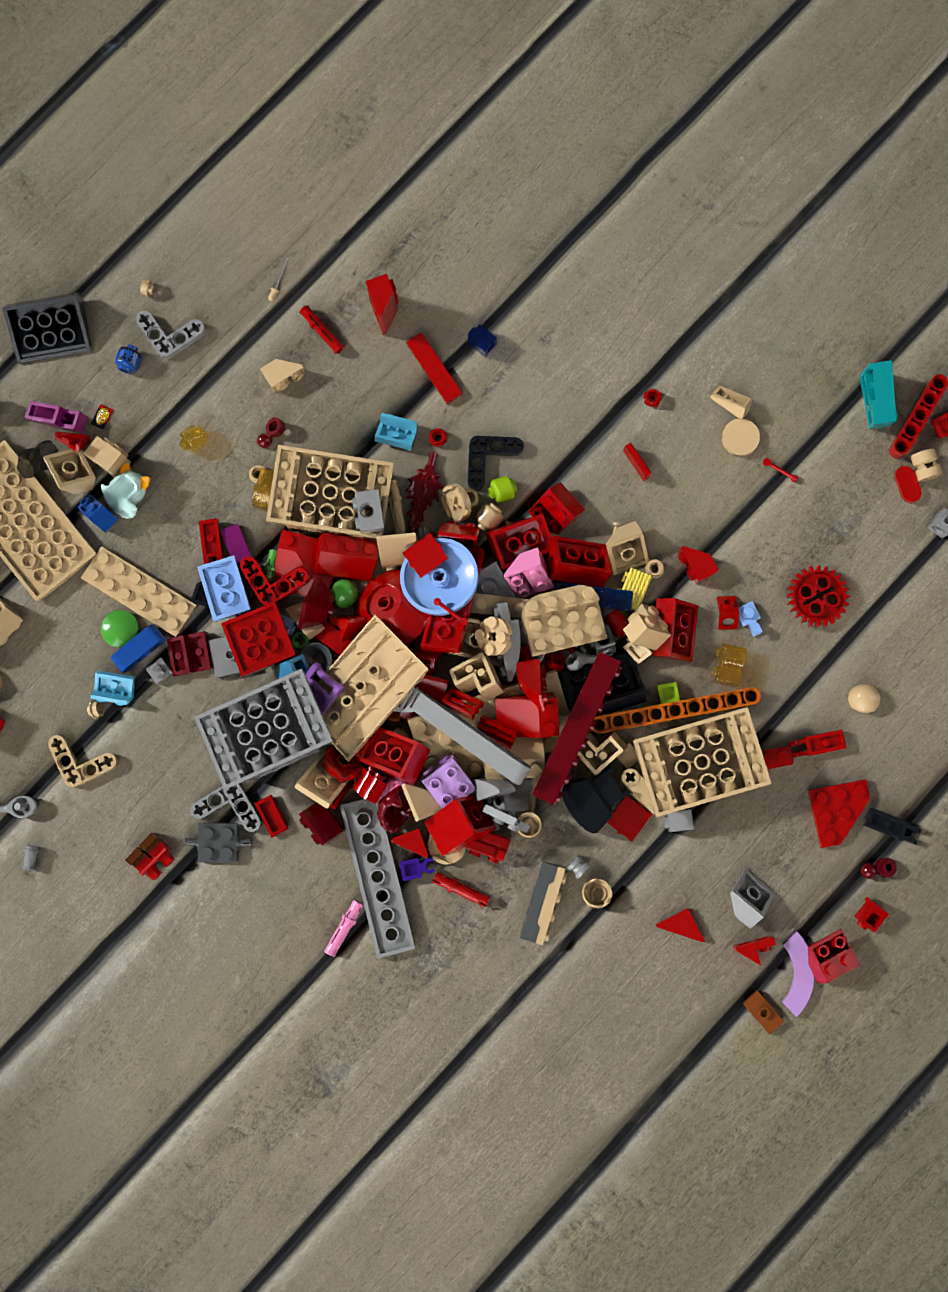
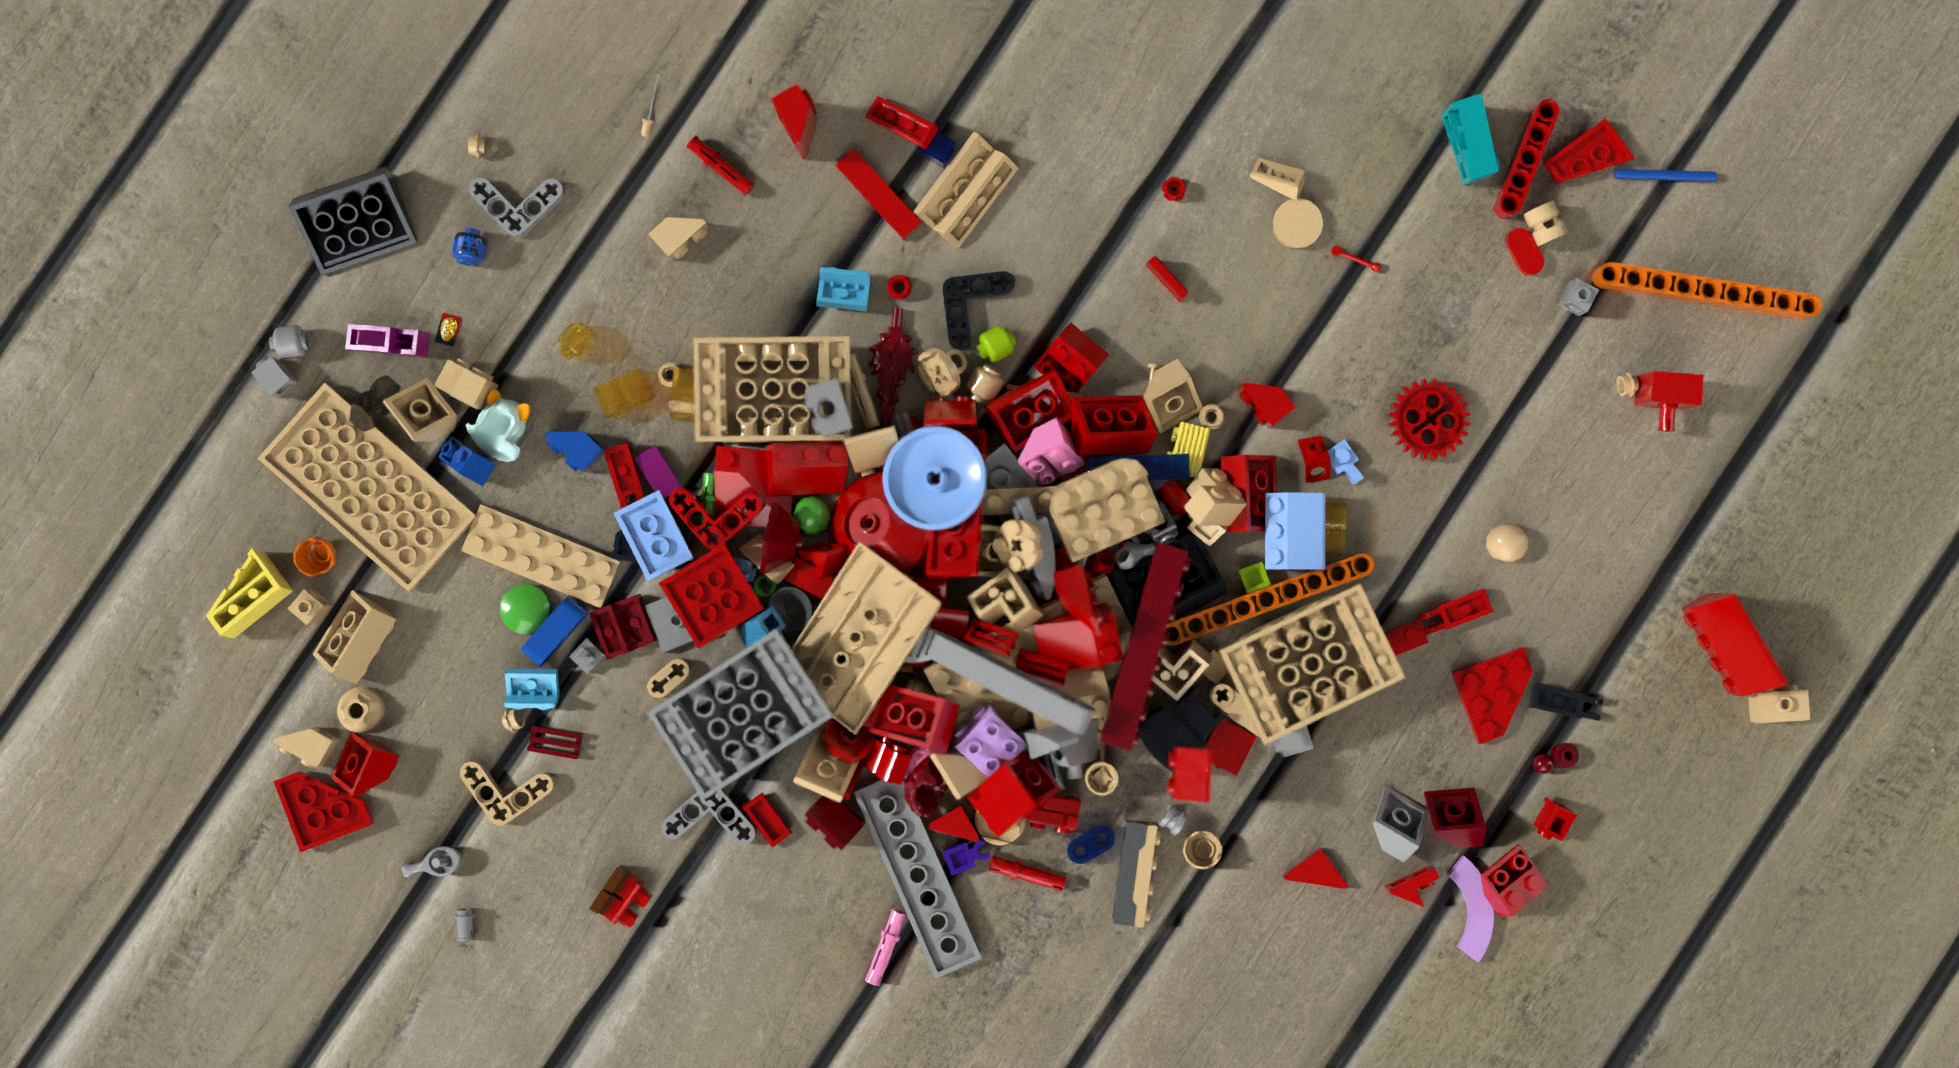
camera: 20 degrees left, 5 degrees up
(73, 440) = (417, 369): red tile -> none
(108, 726) = (533, 739): none -> dark red tile
(180, 515) = (577, 446): none -> blue slope
(214, 694) = (672, 682): none -> tan beam
(218, 842) = (704, 865): dark grey plate -> none
(221, 482) = (624, 393): none -> clear yellow brick
(274, 428) = (680, 309): dark red plate -> none
(322, 696) = (808, 657): medium lavender plate -> none
(425, 555) = (912, 453): red piece -> none
(459, 318) = (901, 122): none -> red tile
(463, 621) = (977, 533): red hinge -> none
(498, 374) = (965, 190): none -> tan slope
(501, 817) = (1064, 776): light grey plate -> none
(513, 877) = (1091, 845): none -> clear blue plate
(596, 830) = (1190, 774): none -> red slope
(704, 662) = (1295, 531): none -> light blue slope
(763, 1012) = (1435, 963): dark orange plate -> none
(796, 900) = (1456, 816): none -> dark red slope

